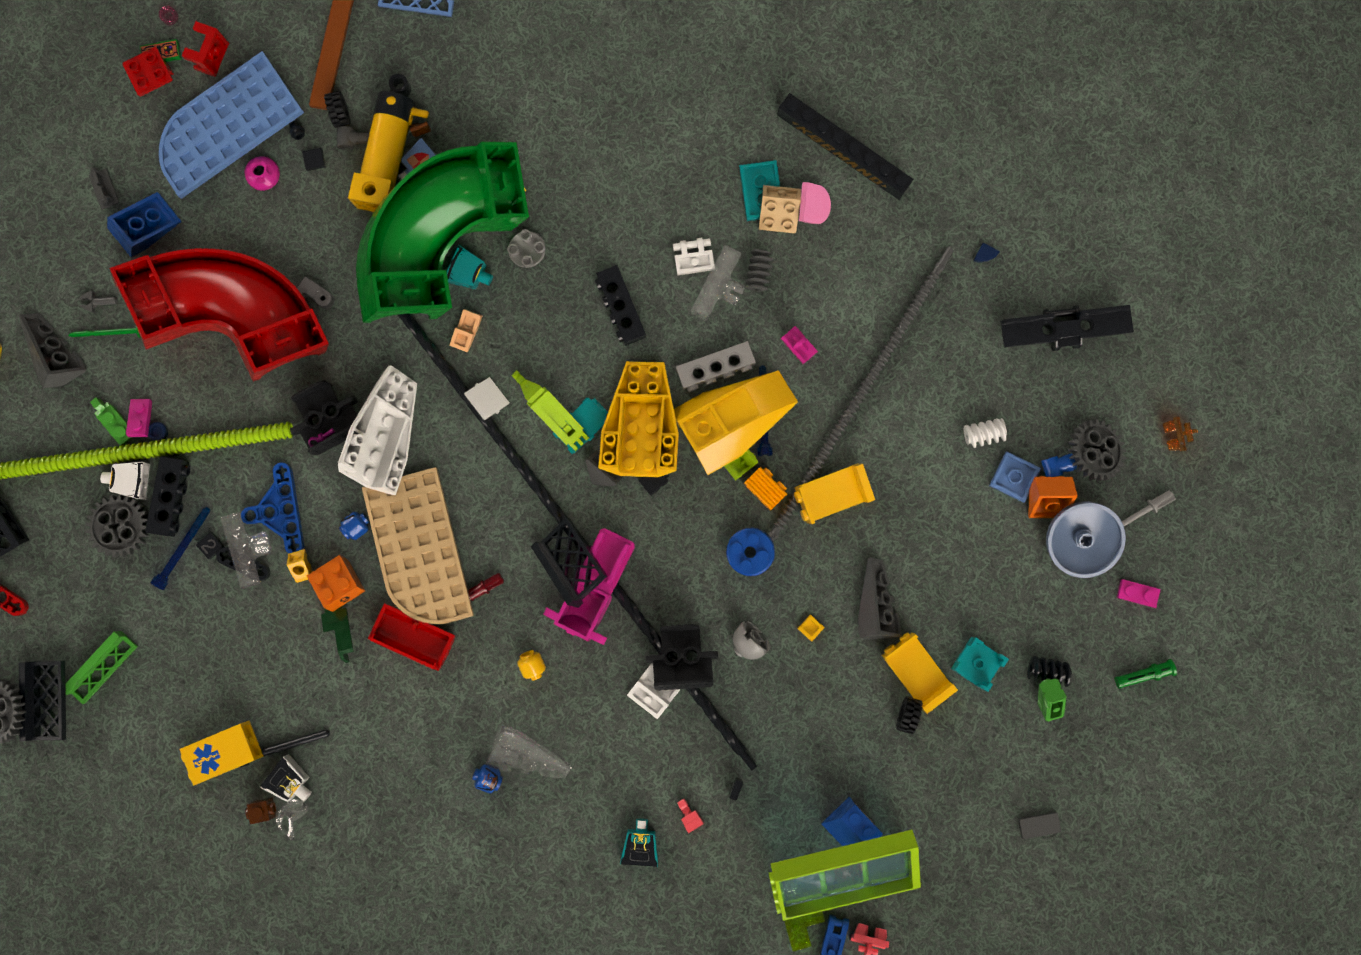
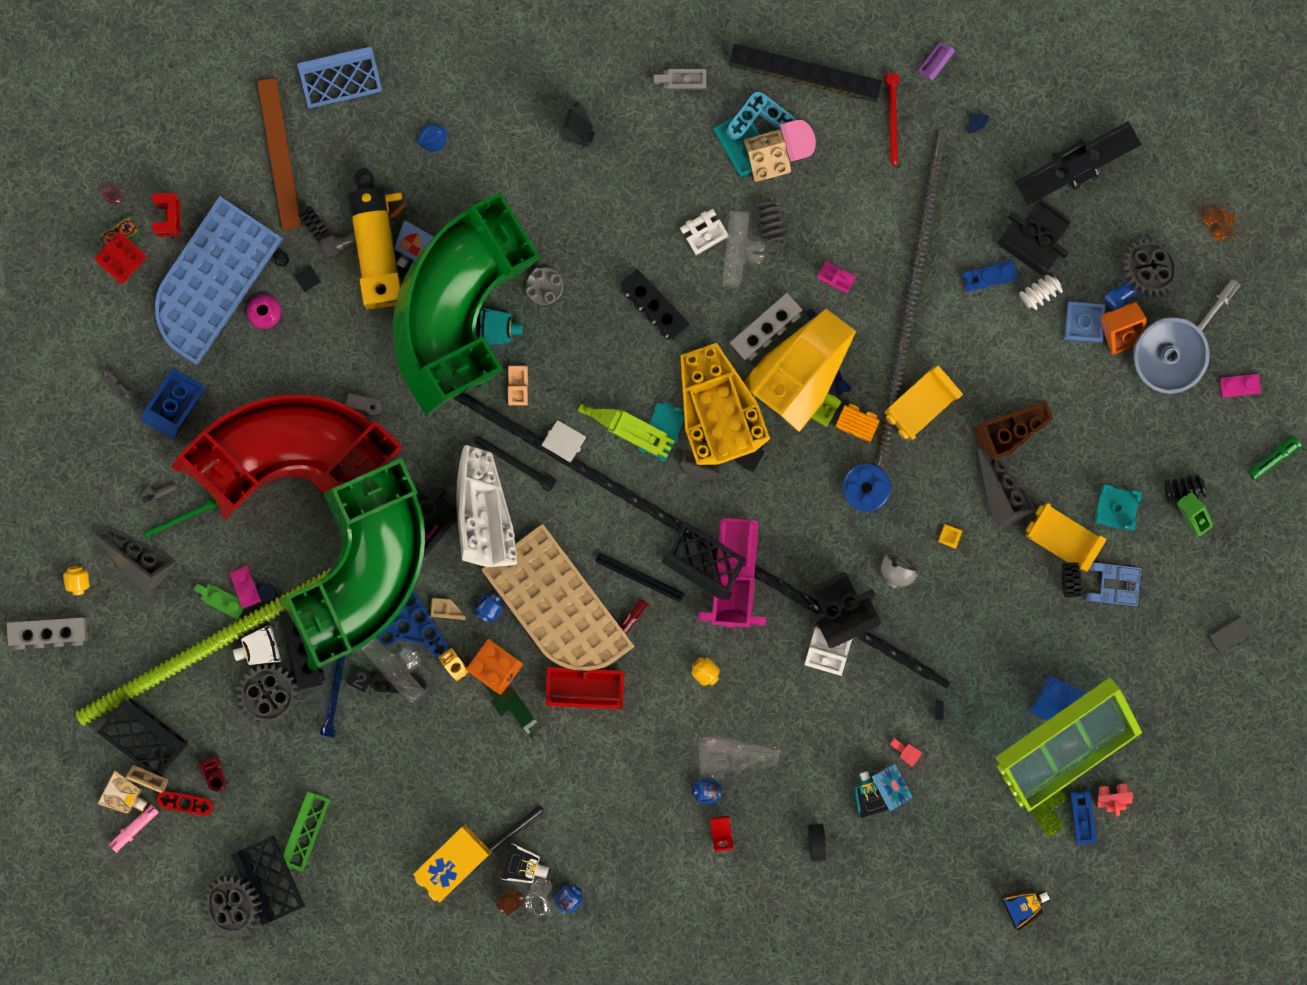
camera: 20 degrees left, 0 degrees up
(37, 578) = (213, 772): none -> dark red piece
(253, 448) = (374, 570): none -> green piece
(316, 511) = (445, 609): none -> tan tile
(317, 829) = (569, 898): none -> blue head
(455, 429) = (545, 481): none -> black piece
(480, 75) = (432, 137): none -> blue hat
(485, 824) = (721, 833): none -> red bracket
(506, 552) = (639, 577): none -> black axle
(570, 870) = (817, 842): none -> black tyre
(613, 110) = (578, 126): none -> black wedge
(662, 846) = (892, 787): none -> tile
(728, 109) = (682, 79): none -> light grey hinge
(789, 164) = (762, 110): none -> medium azure beam
(903, 552) = (1008, 432): none -> reddish brown wedge
(921, 185) = (891, 82): none -> red piece
(943, 400) = (990, 276): none -> blue plate
(950, 736) = (1118, 584): none -> medium blue flag
(969, 182) = (936, 61): none -> medium lavender plate
(990, 387) = (1029, 247): none -> black piece

